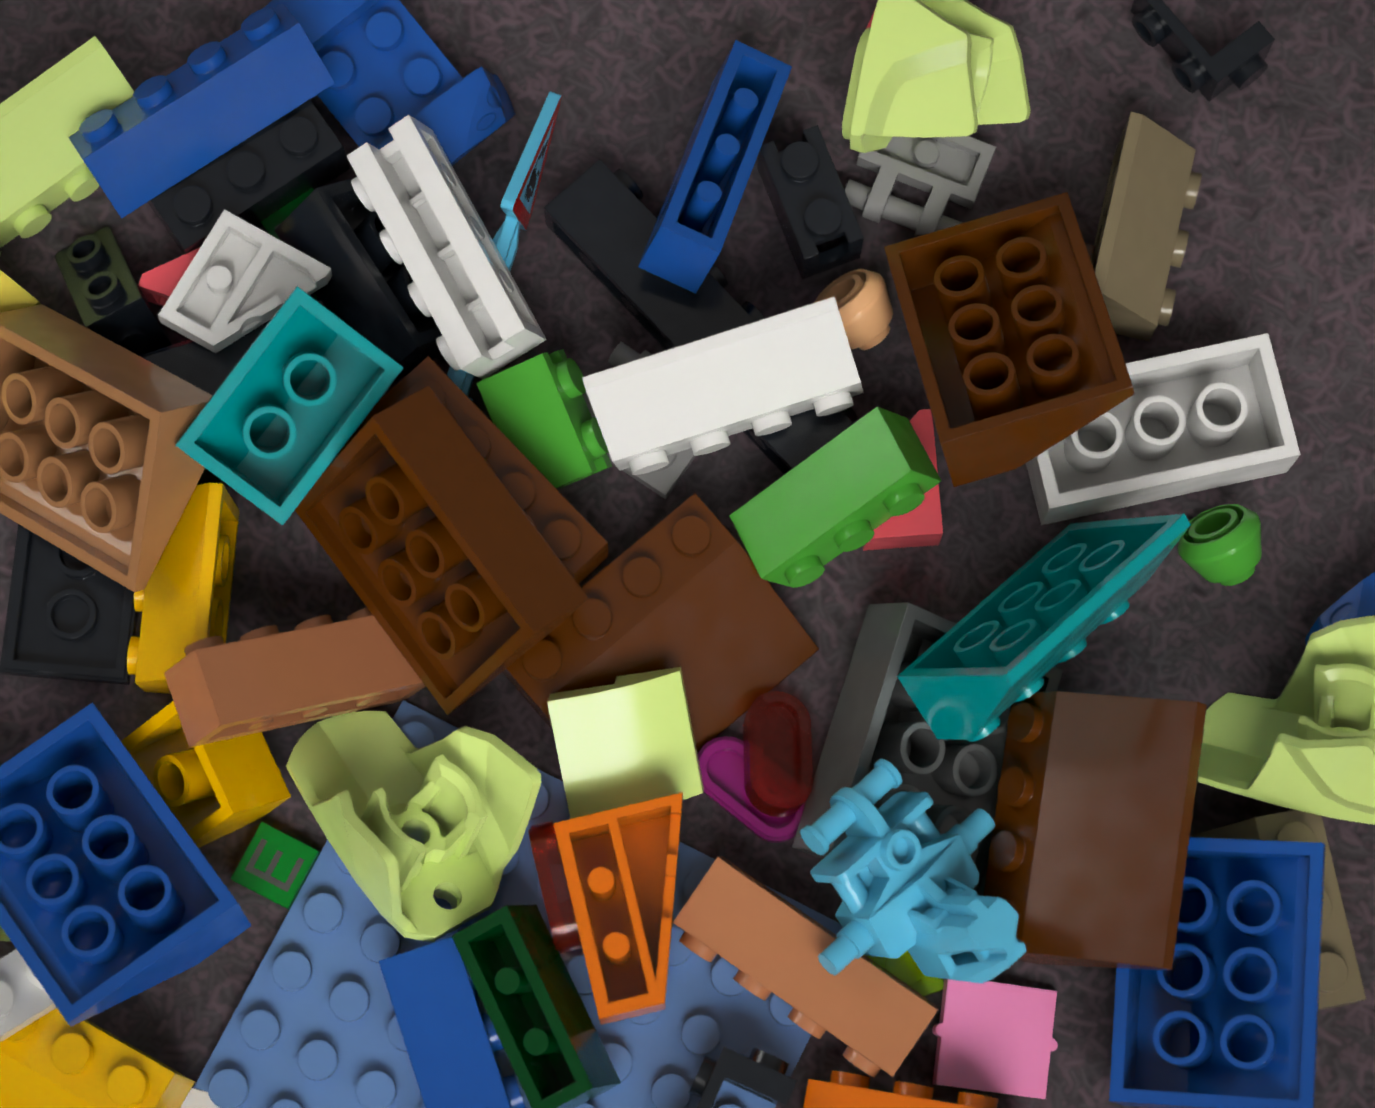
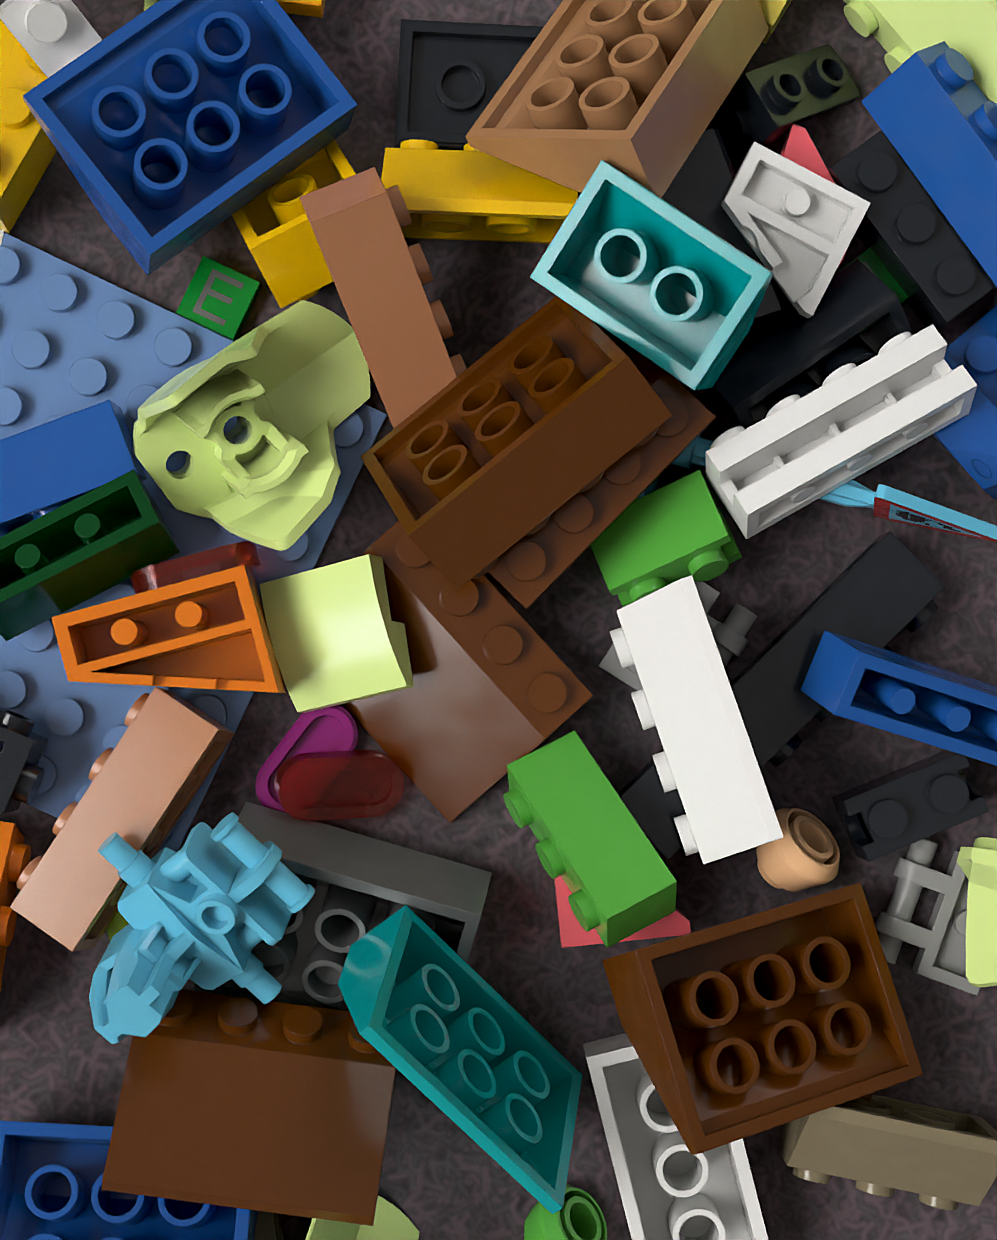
camera: 90 degrees right, 10 degrees up
(995, 1038) = (56, 1007): bright pink piece -> none

